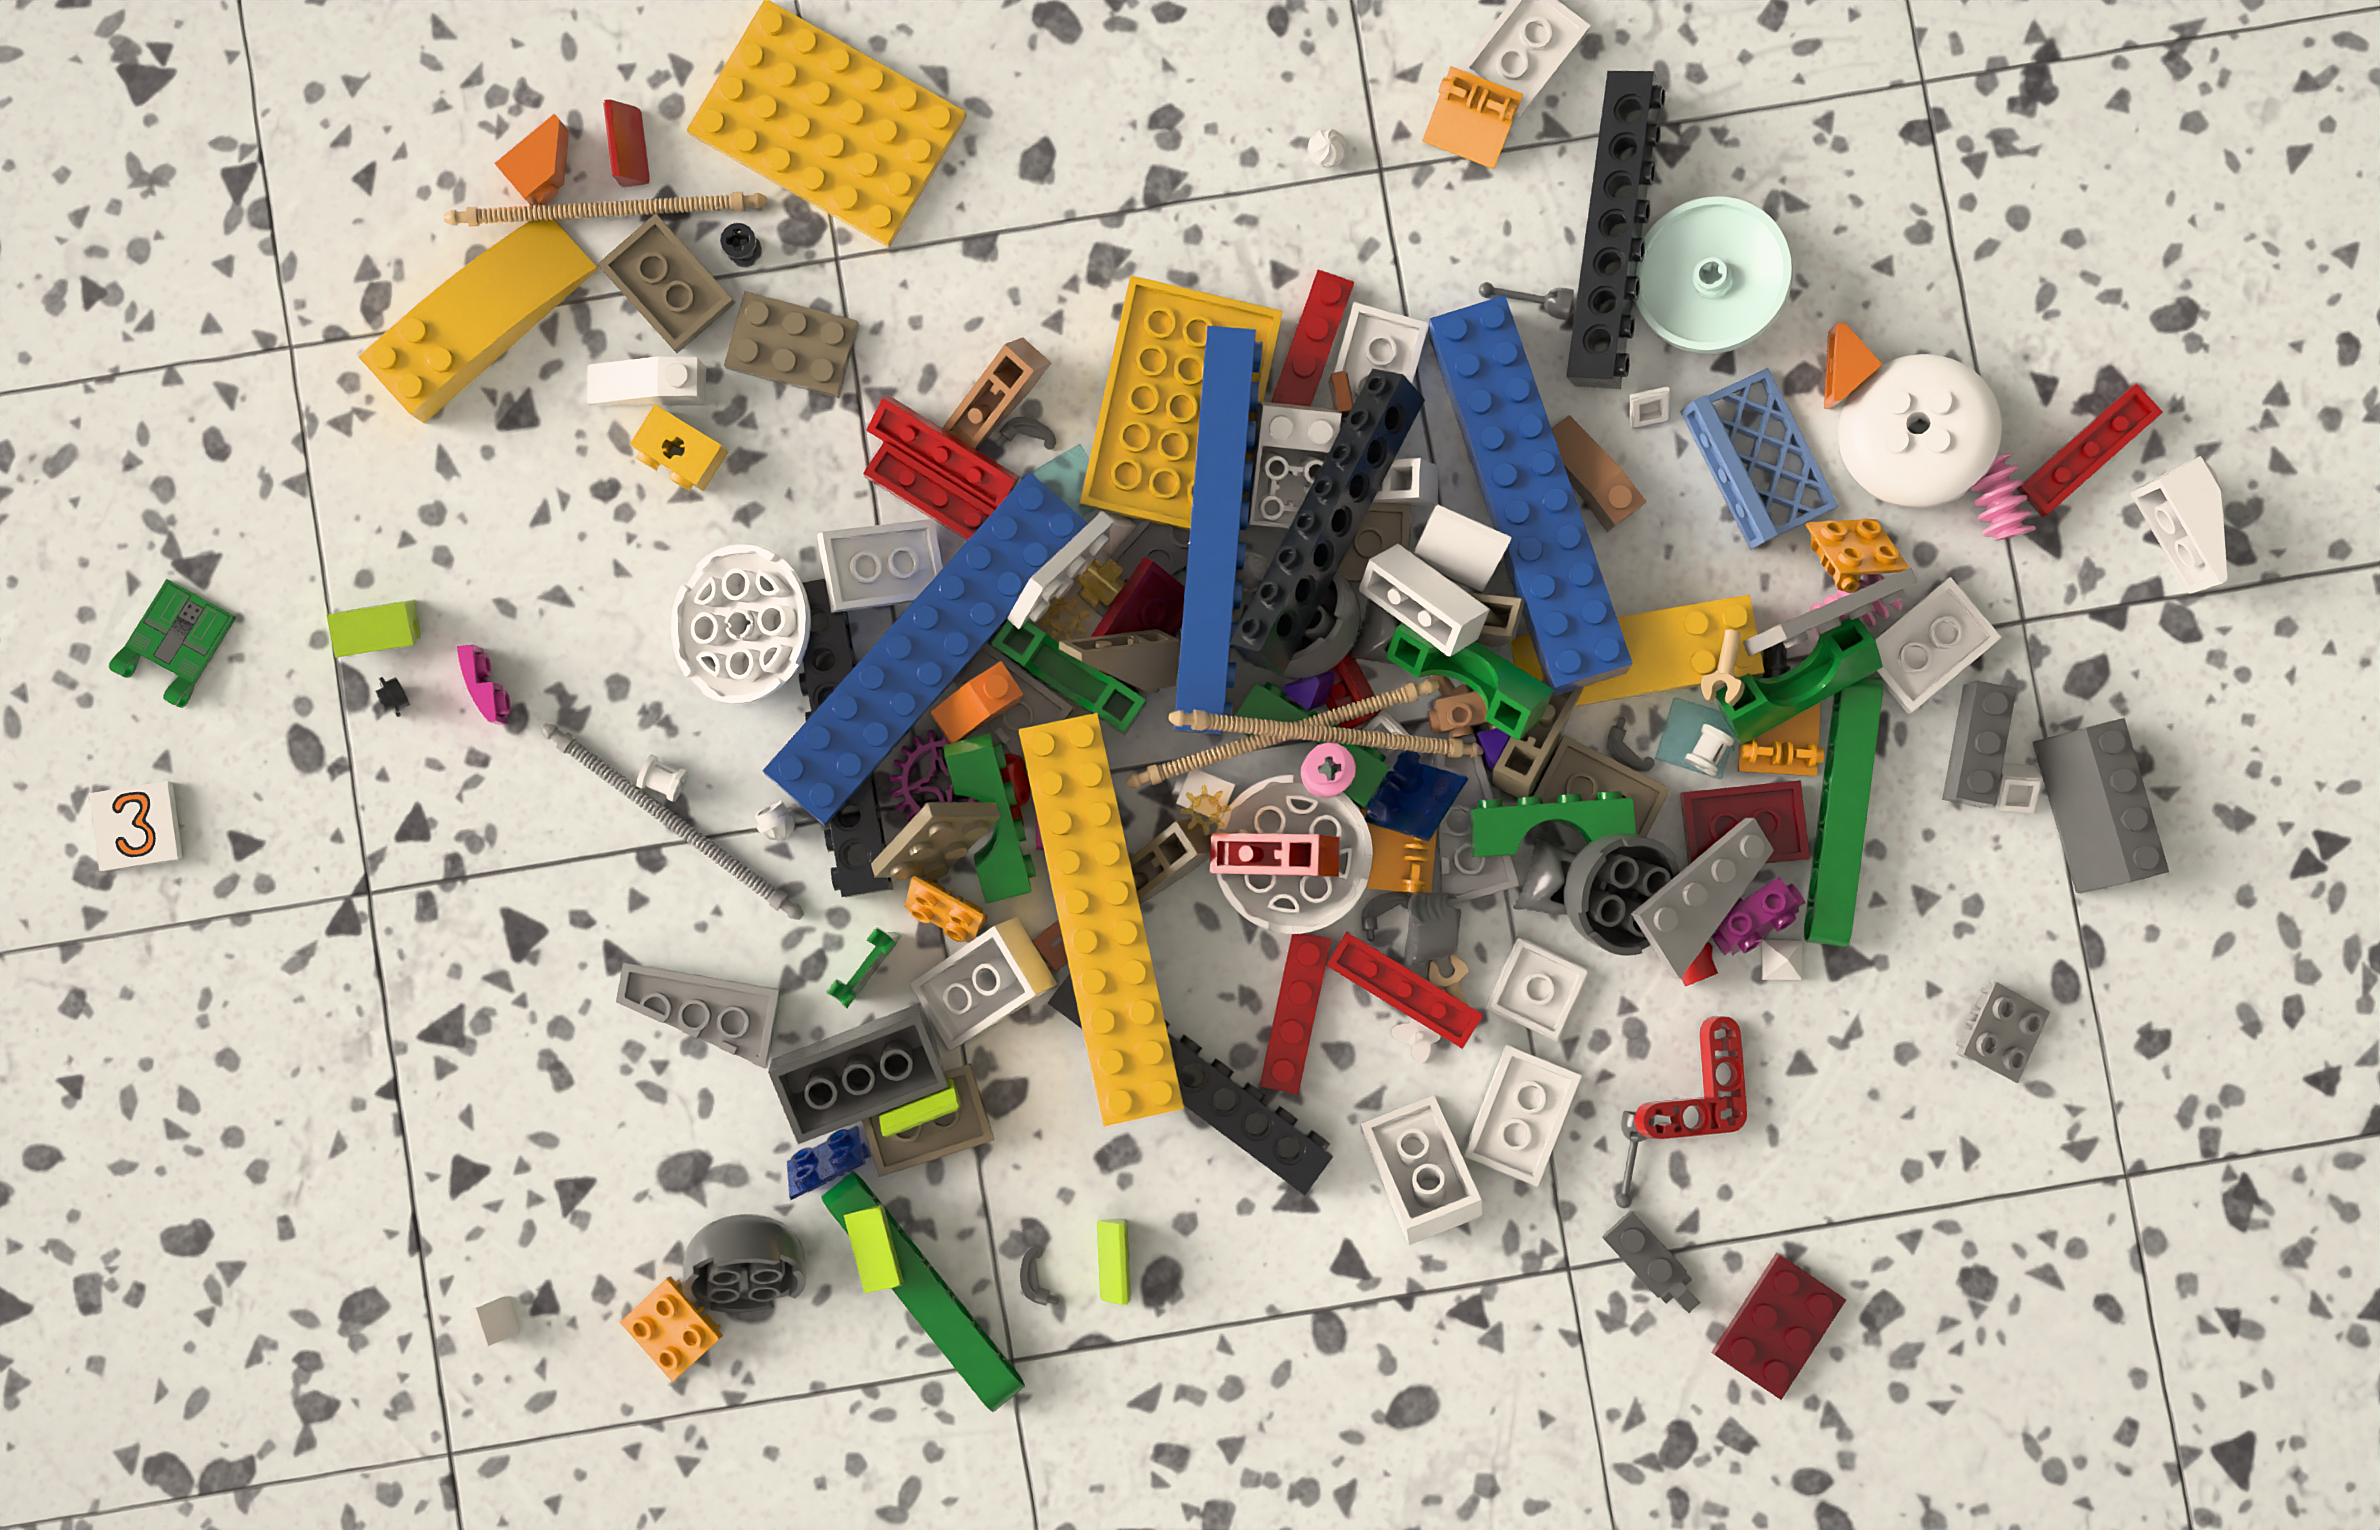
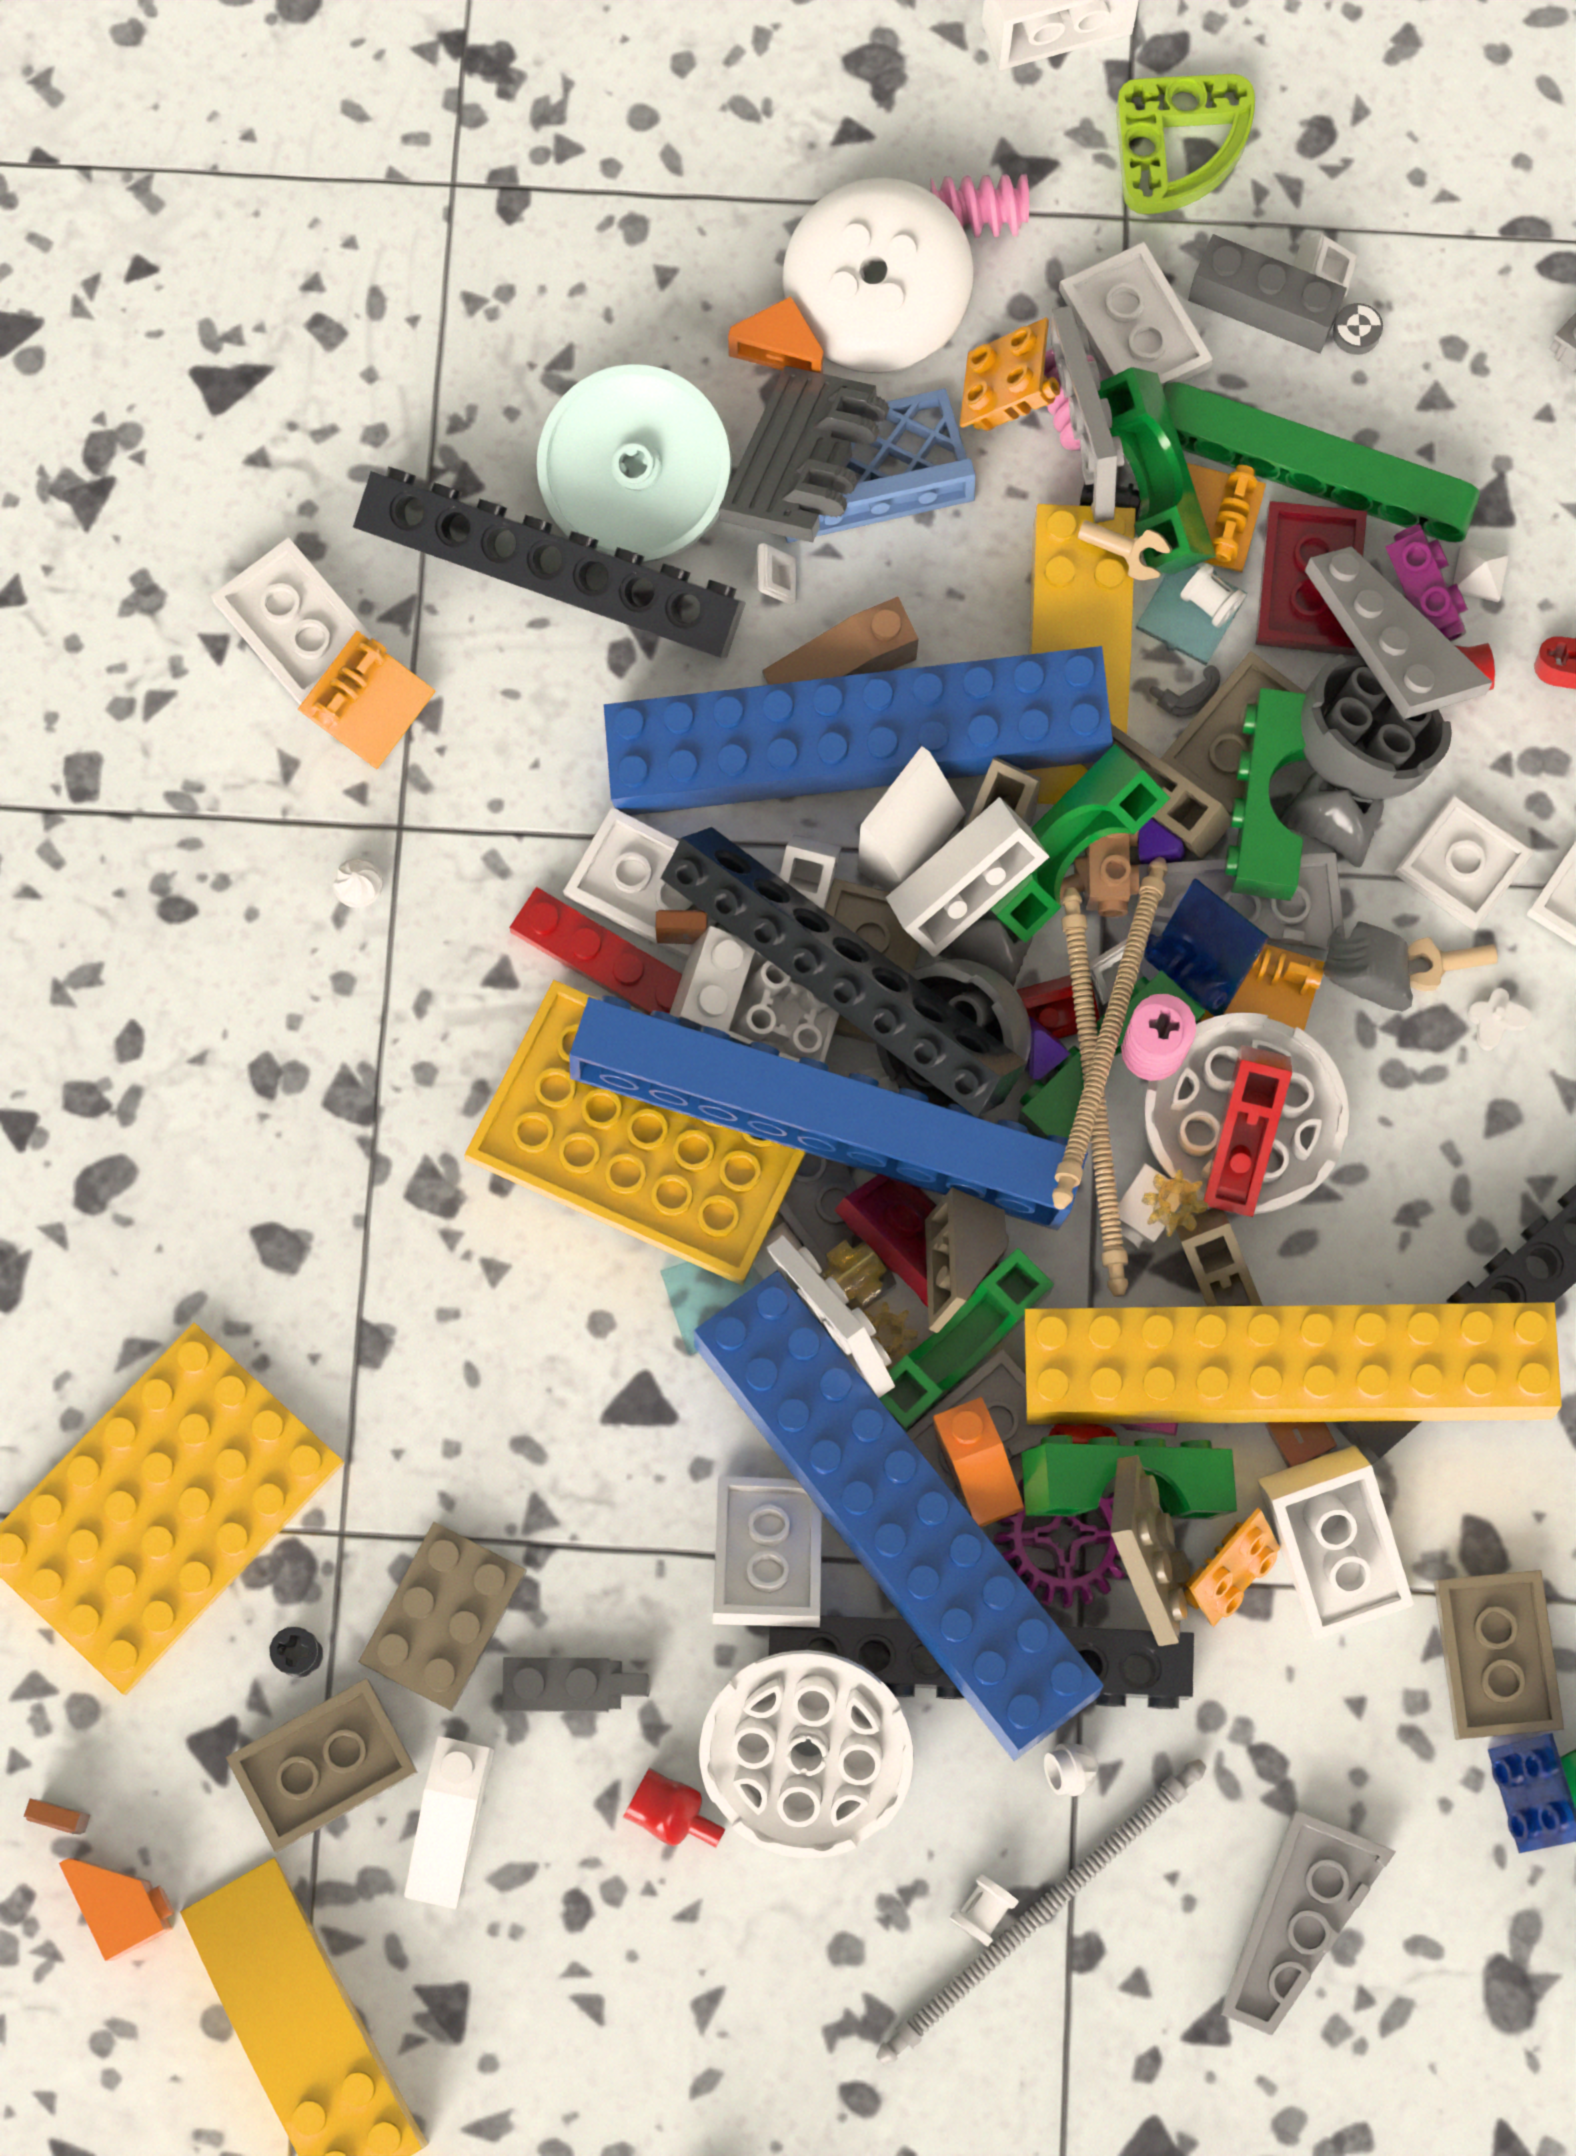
camera: 80 degrees left, 10 degrees down
(475, 216) = (167, 2007): tan hose -> none
(487, 696) = (826, 2126): dark pink slope -> none
(590, 105) = (56, 1816): none -> dark orange tile
(626, 143) = (120, 1778): red slope -> none
(664, 431) = (519, 1802): yellow brick -> none
(686, 539) = (670, 1811): none -> red piece
(761, 445) = (568, 1684): none -> dark grey hinge
(858, 1073) = (1425, 1724): dark grey slope -> none
(884, 944) = (1268, 1652): green flag -> none
(920, 1110) = (1486, 1653): lime slope -> none
(927, 491) = (682, 1475): red plate -> none
(942, 452) = (635, 1446): red plate -> none
(997, 392) = (577, 1363): medium nougat slope -> none
(1028, 427) = (623, 1333): dark grey piece -> none
(1295, 1012) = (1443, 1159): red plate -> none
(1378, 907) = (1327, 1029): dark grey piece -> none
(1404, 990) = (1439, 1017): red plate -> none
(1556, 302) = (621, 653): dark grey hinge -> none
(1750, 401) = (802, 454): none -> dark grey hinge
(1969, 824) = (1357, 328): none -> dark grey tile
(2089, 450) = (941, 98): red plate -> none
(2100, 806) = (1365, 179): dark grey slope -> none
(2108, 622) = (1150, 124): none -> lime beam

